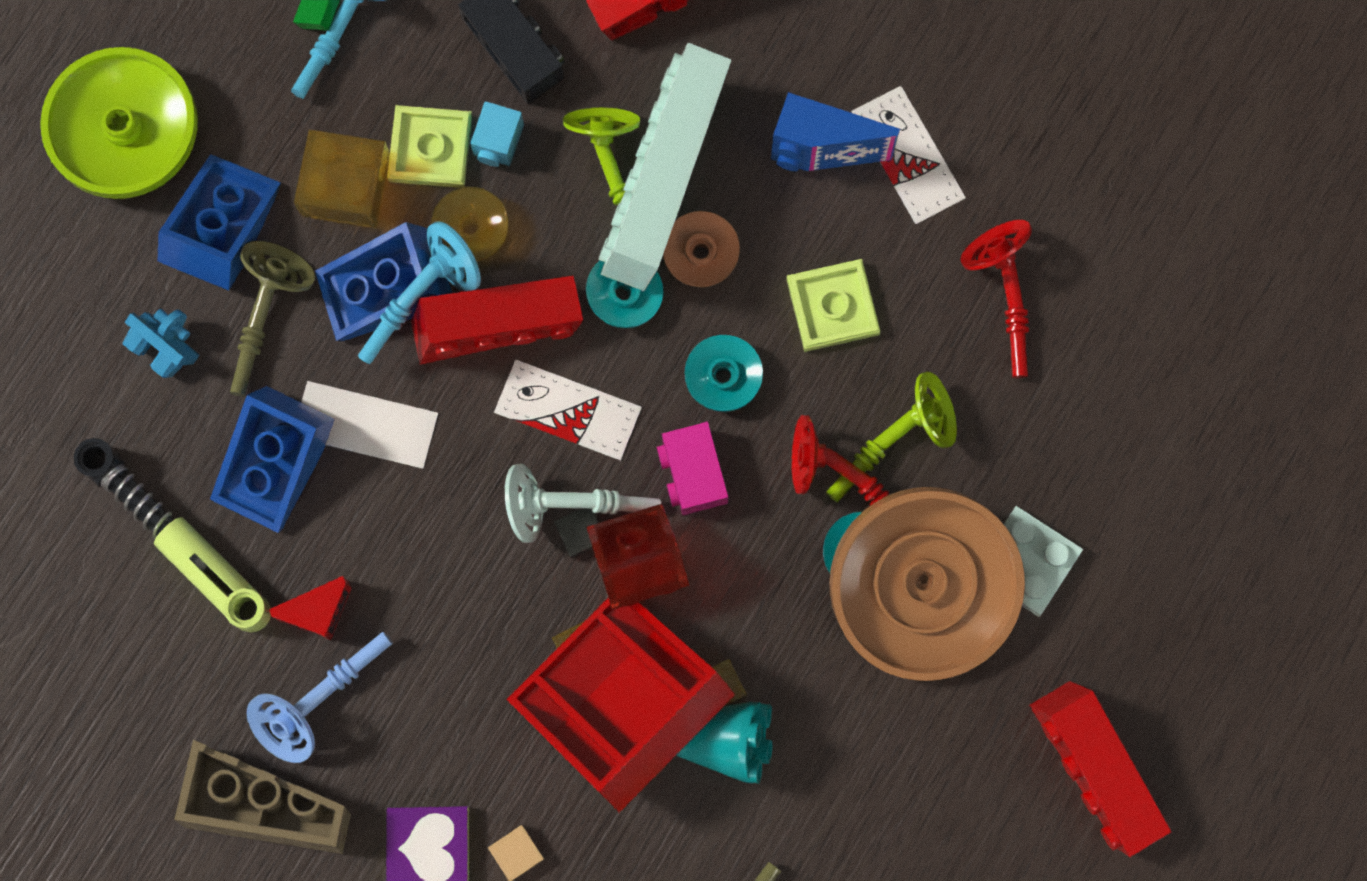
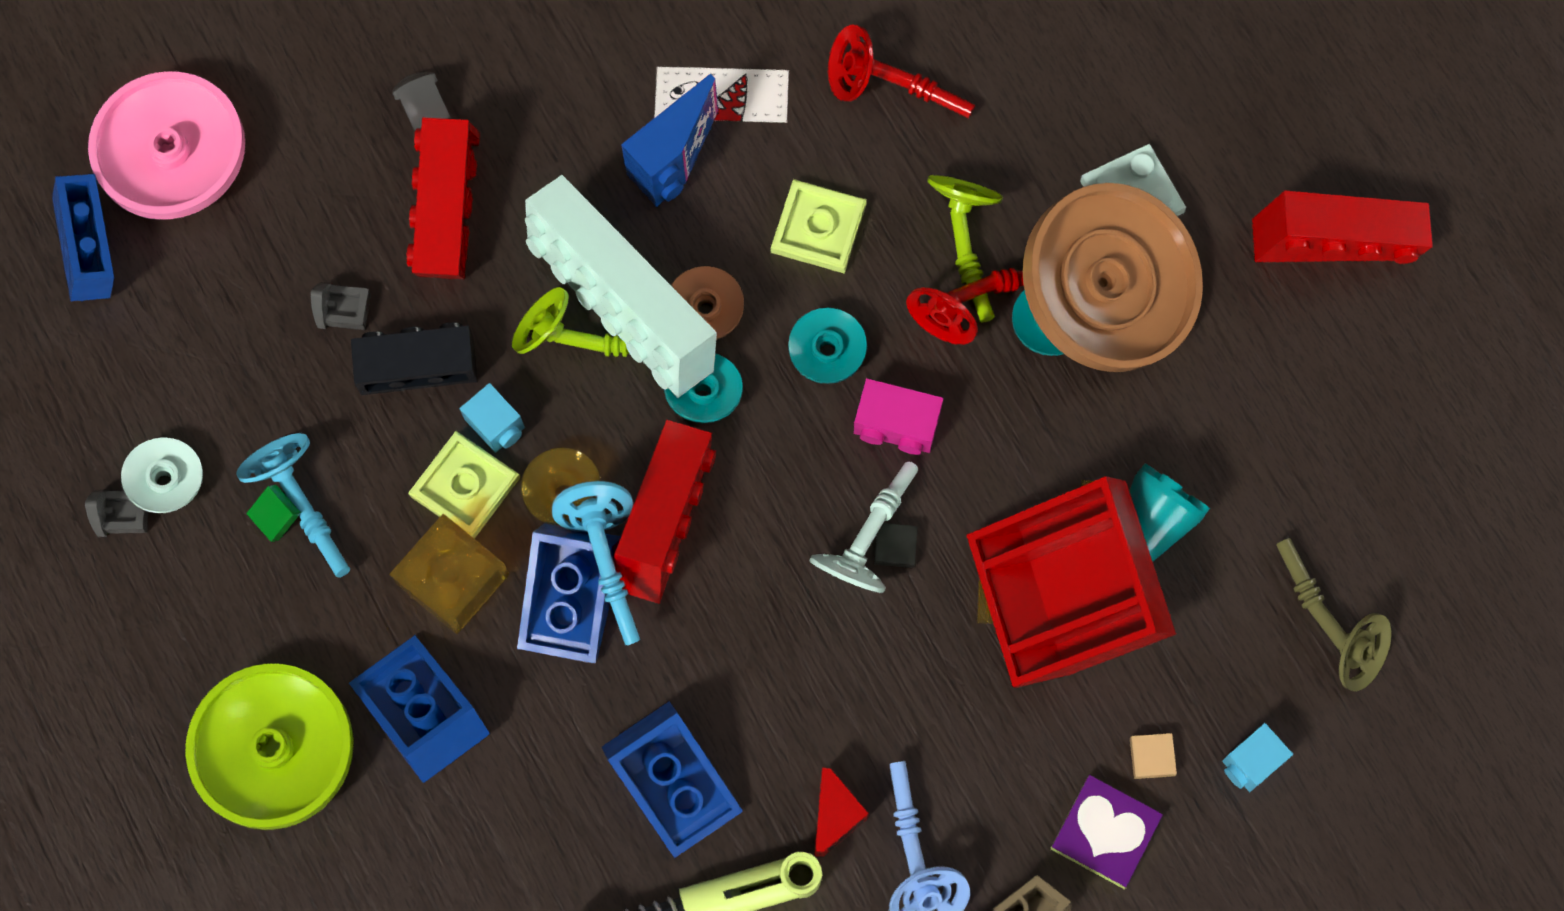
camera: 60 degrees left, 5 degrees down
(166, 335) = (482, 828): dark azure hips -> none
(272, 278) = (503, 686): olive dish -> none
(374, 424) = (691, 673): white sticker -> none
(568, 409) = (777, 498): white sticker -> none
(637, 556) = (953, 500): clear red brick -> none

